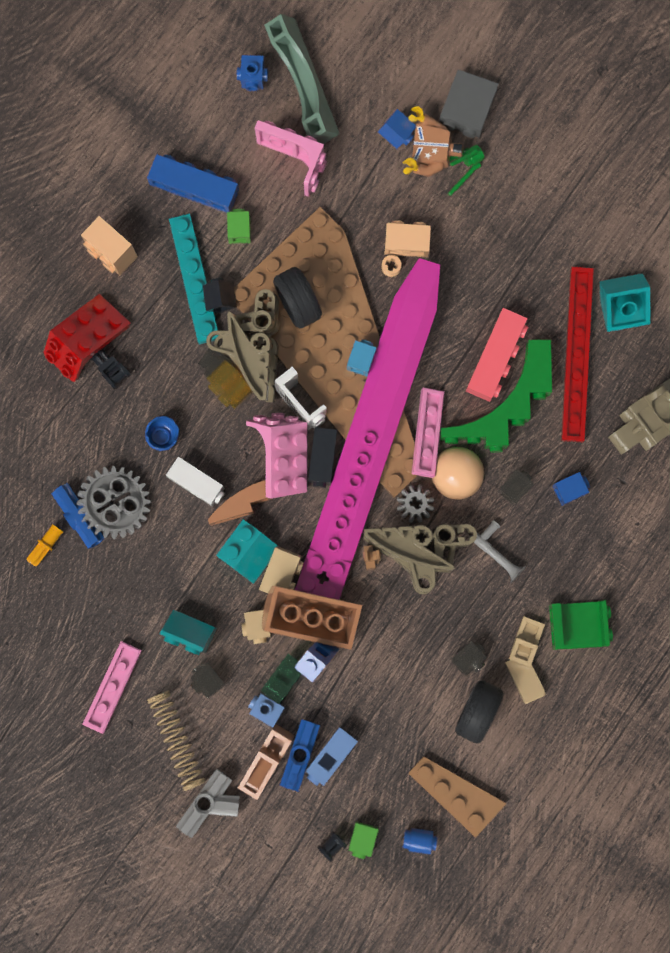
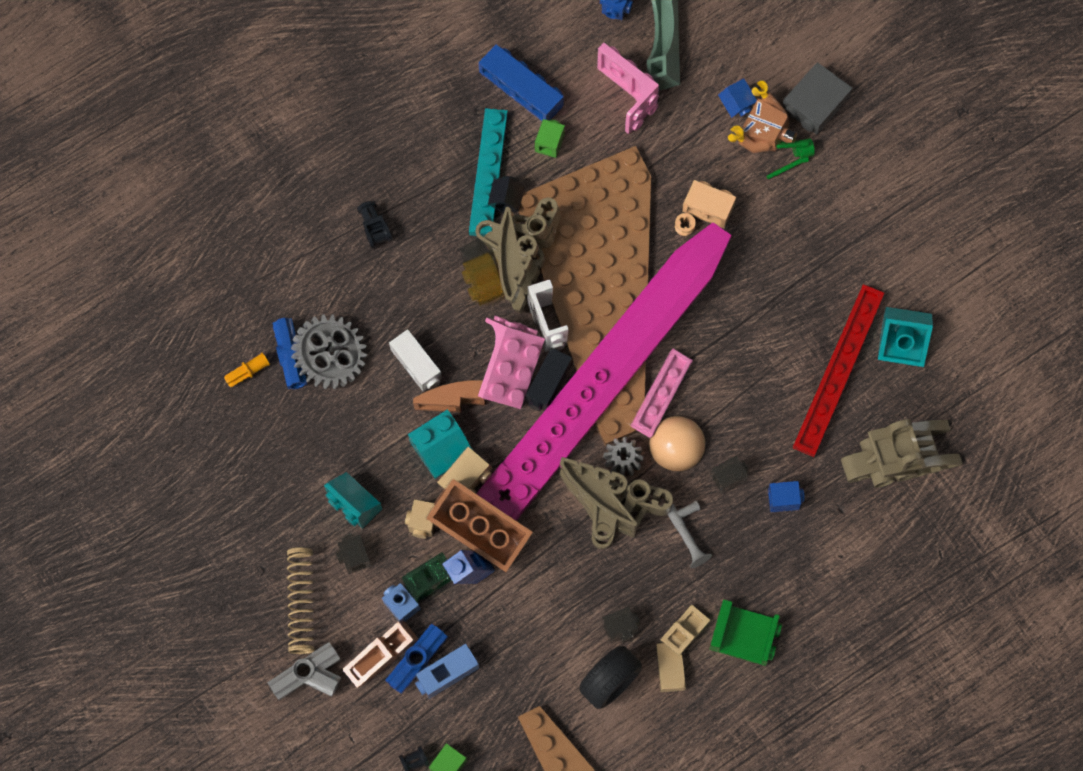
camera: 20 degrees right, 10 degrees down
(83, 335) = (360, 185): red bracket -> none
(109, 246) = (417, 112): light nougat brick -> none
(112, 687) = (258, 528): bright pink tile -> none
(161, 433) = (400, 303): blue hair -> none
(297, 297) = (579, 217): black tyre -> none
(361, 357) = (621, 297): dark azure brick -> none
(371, 557) = (559, 492): medium nougat plate -> none
(493, 428) = (755, 400): green arch -> none
(497, 354) = (757, 341): coral brick -> none

